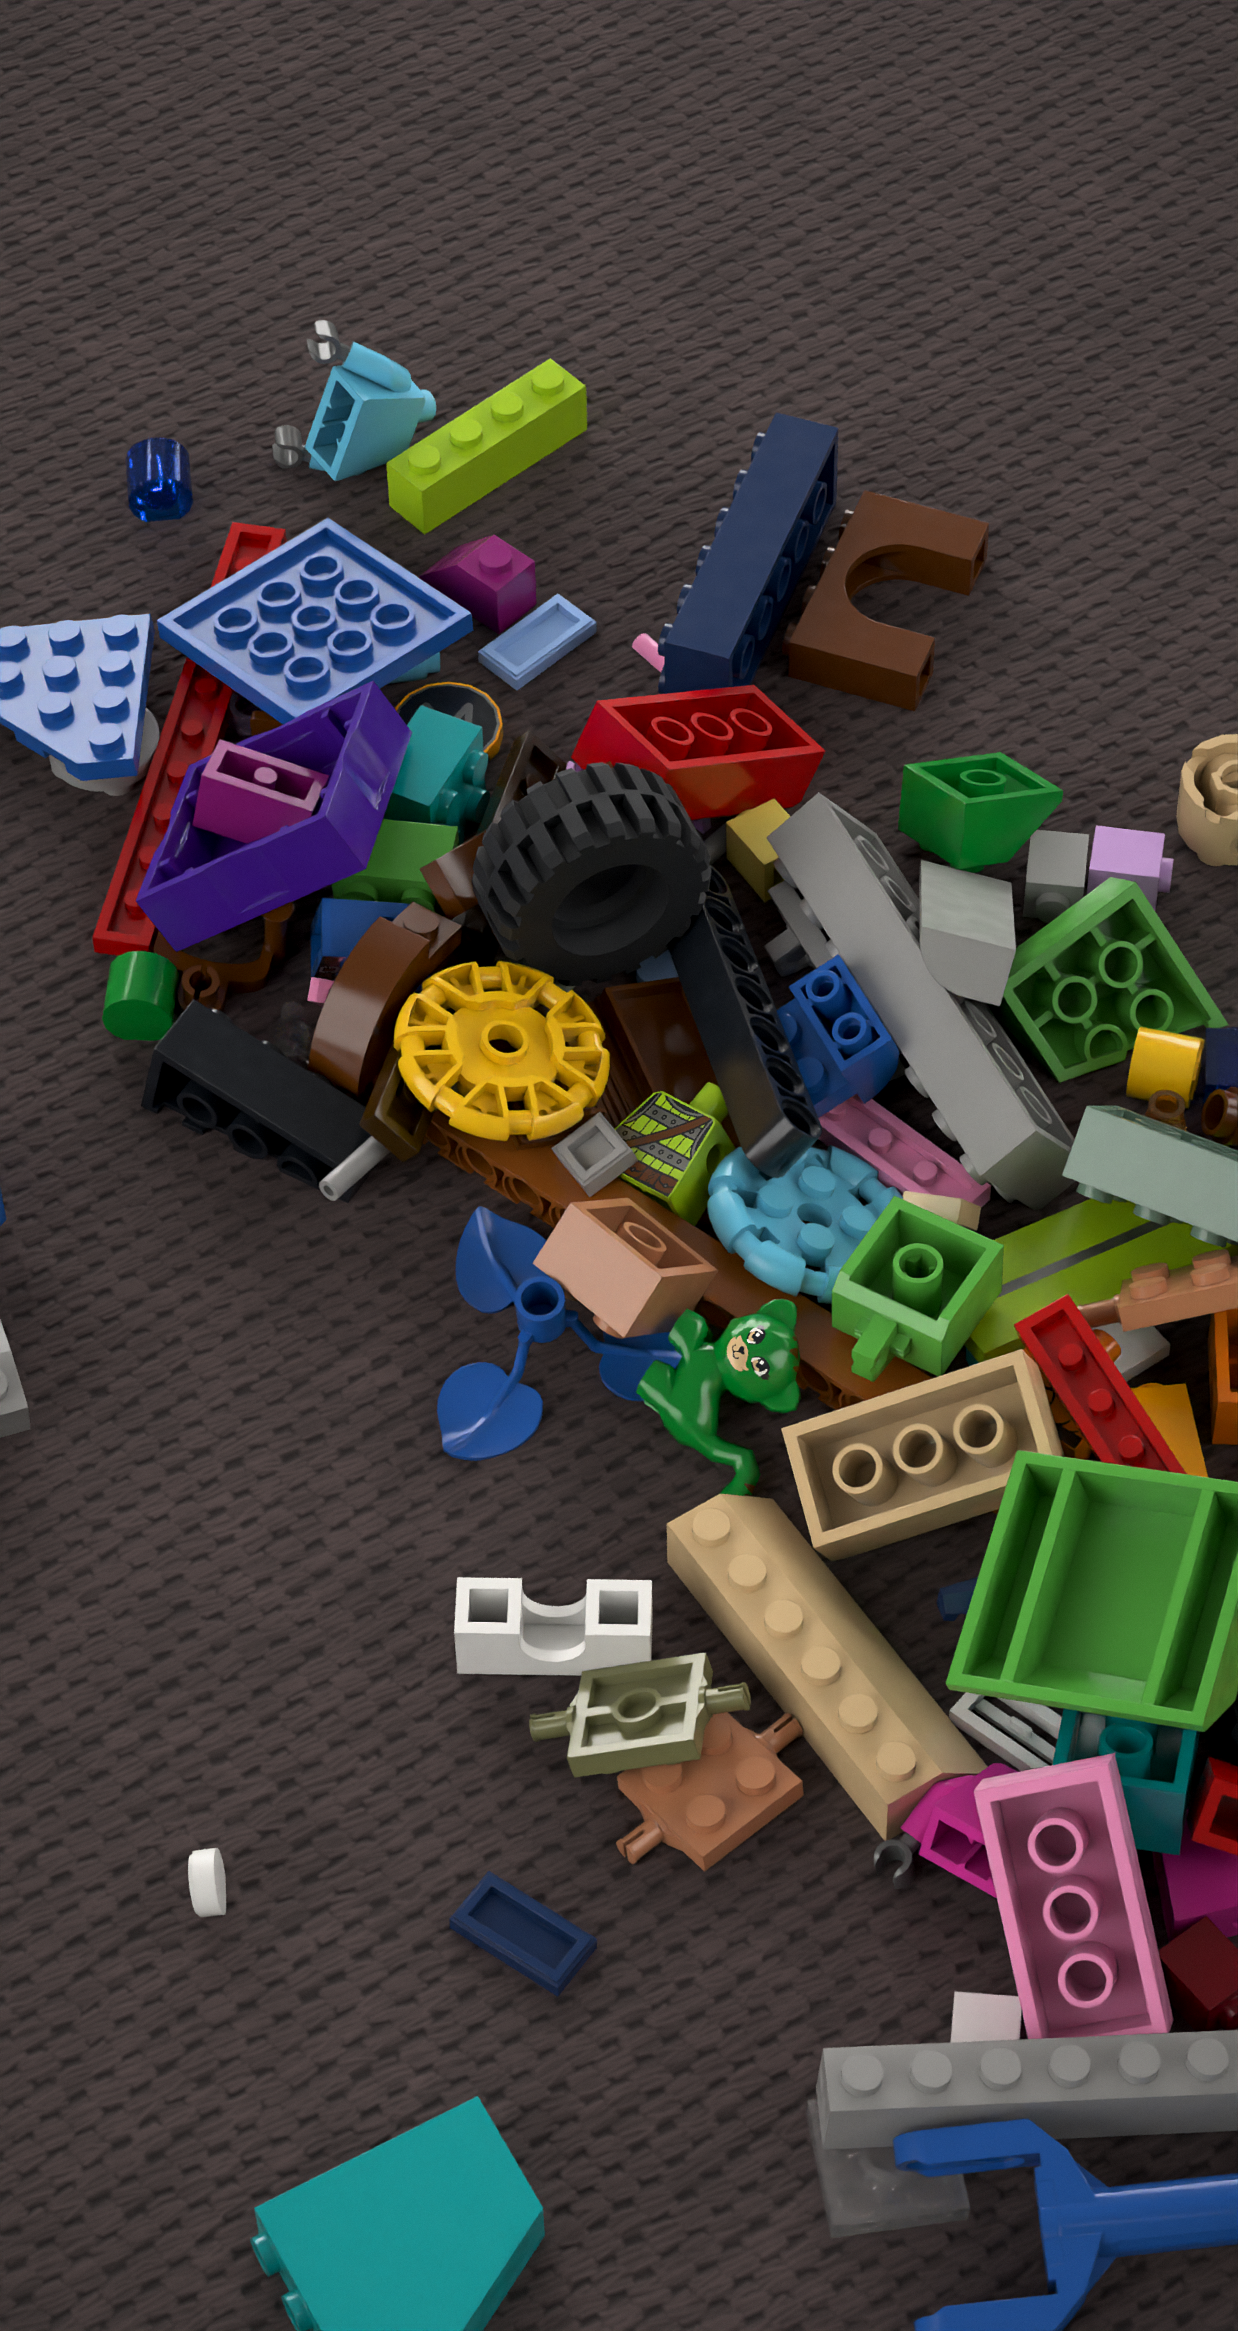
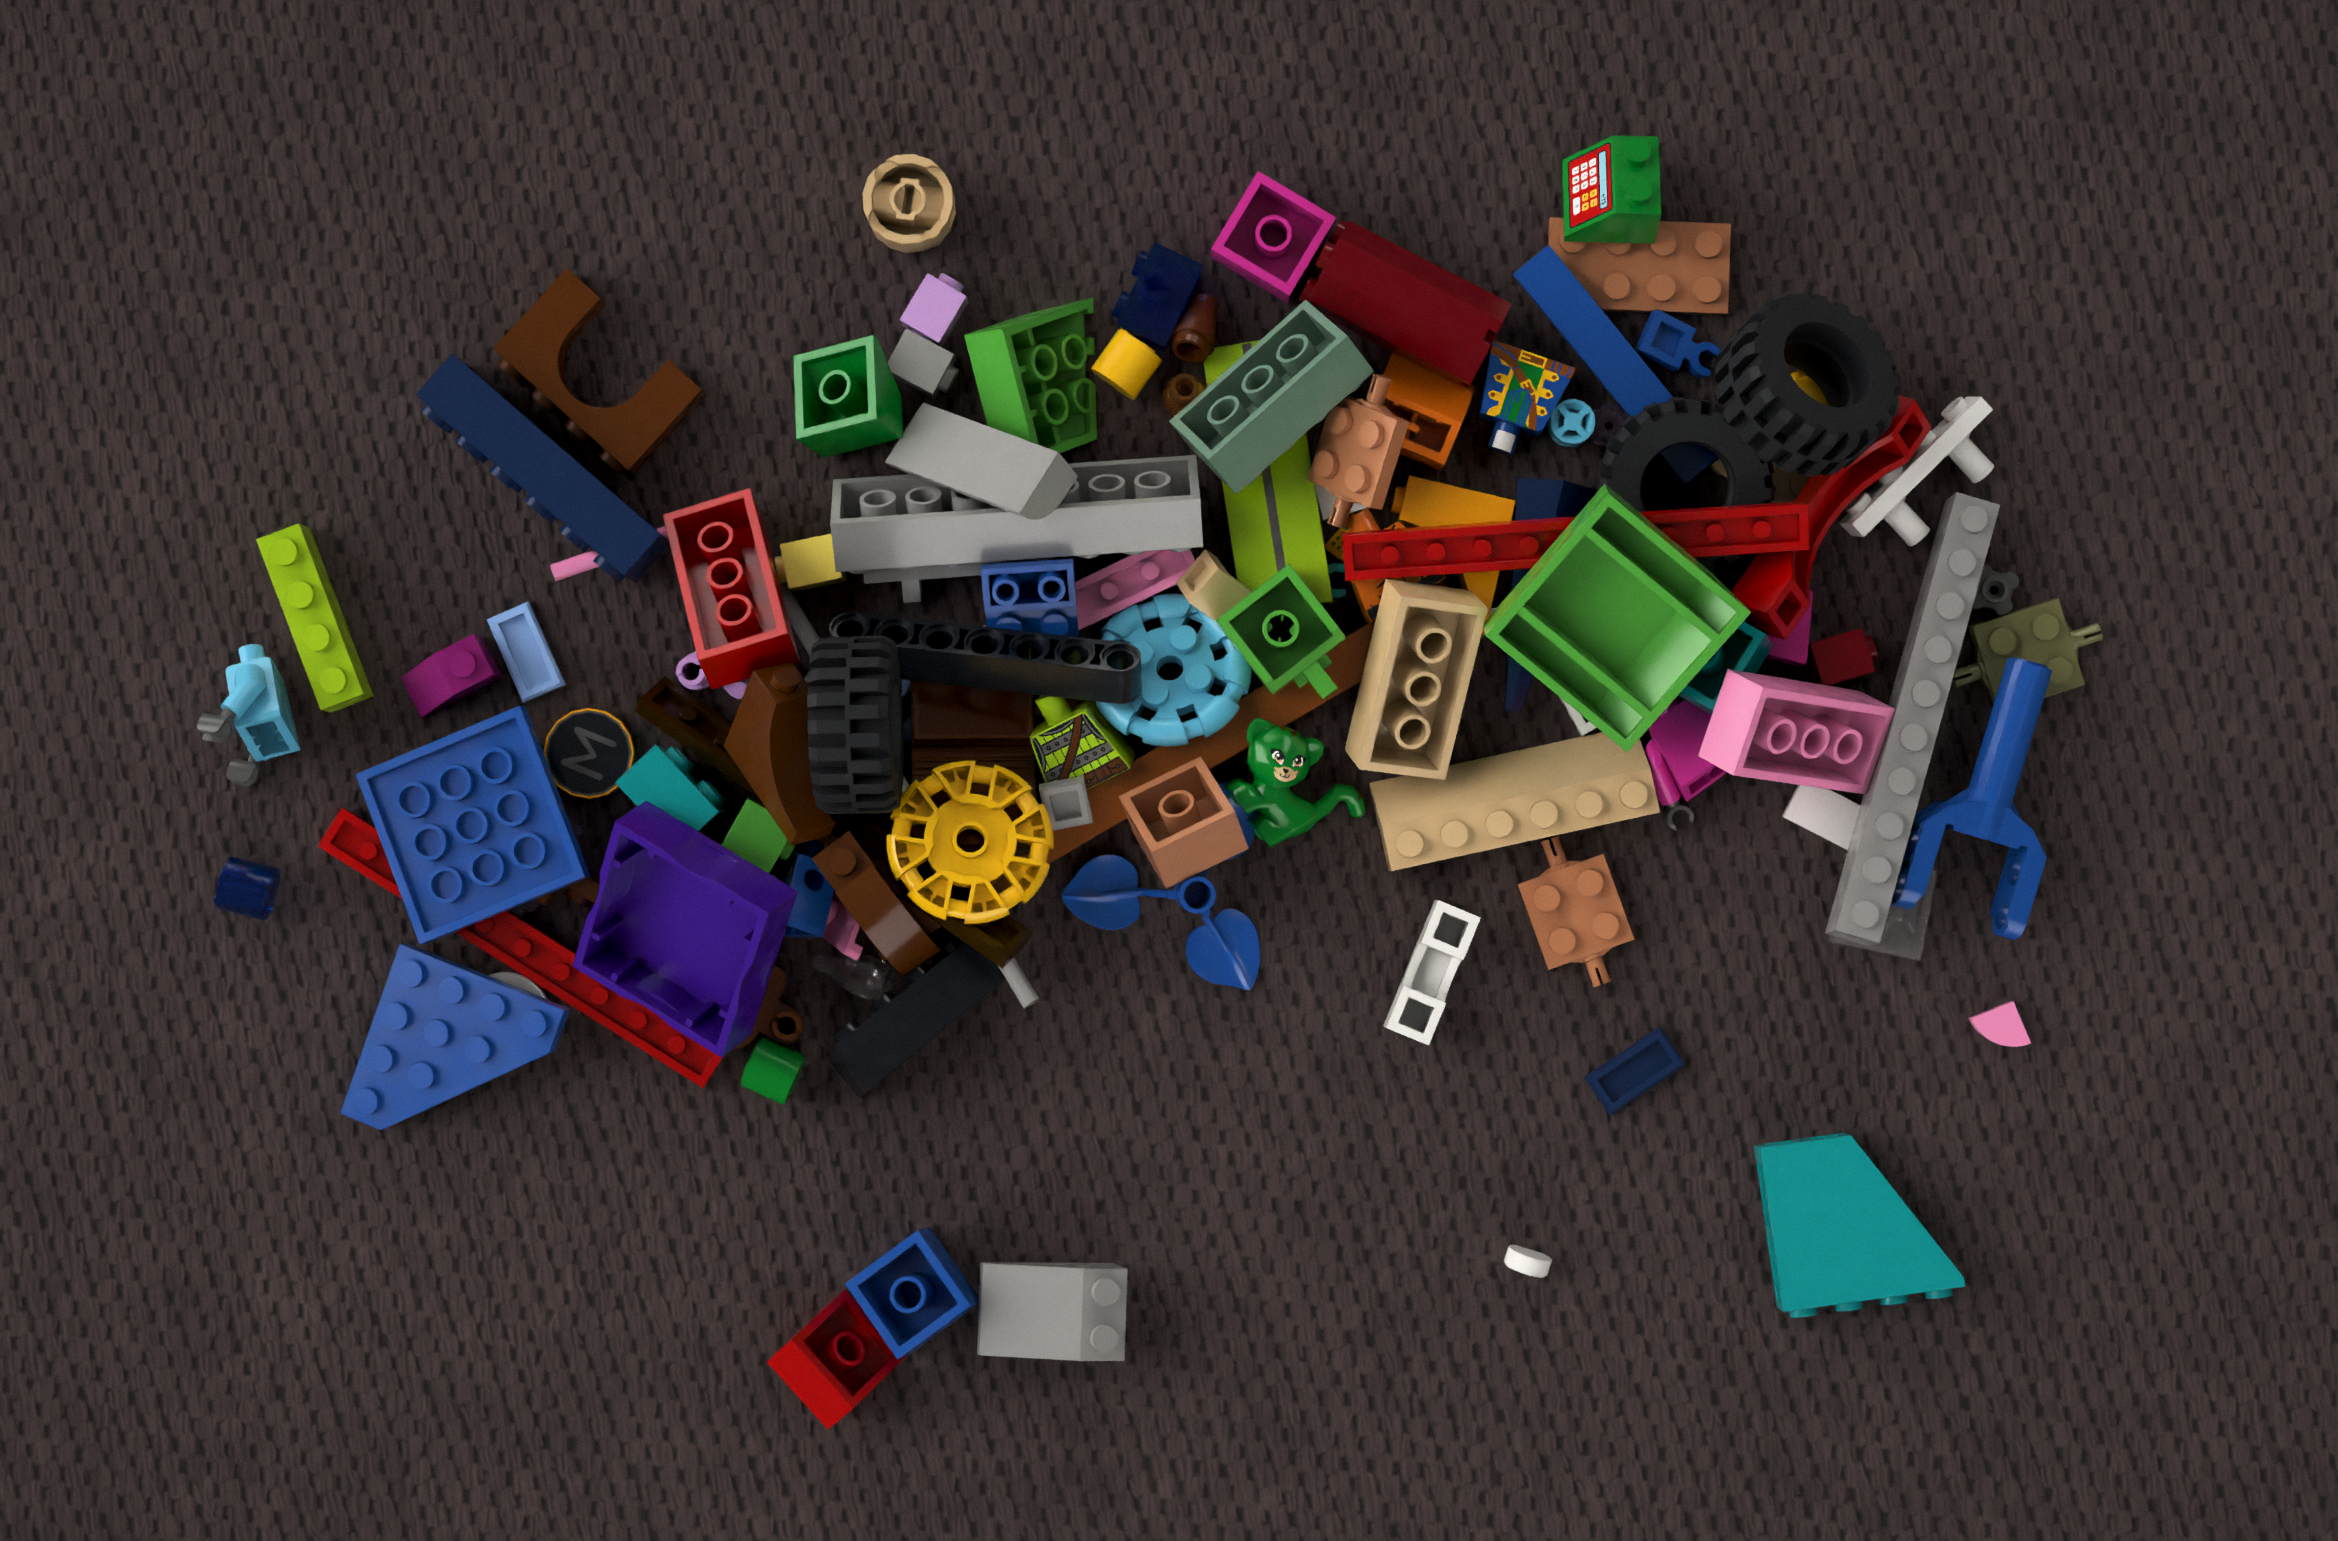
camera: 75 degrees left, 35 degrees up
(253, 793) = (649, 931): magenta slope -> none
(640, 1714) = (1520, 940): olive plate -> none

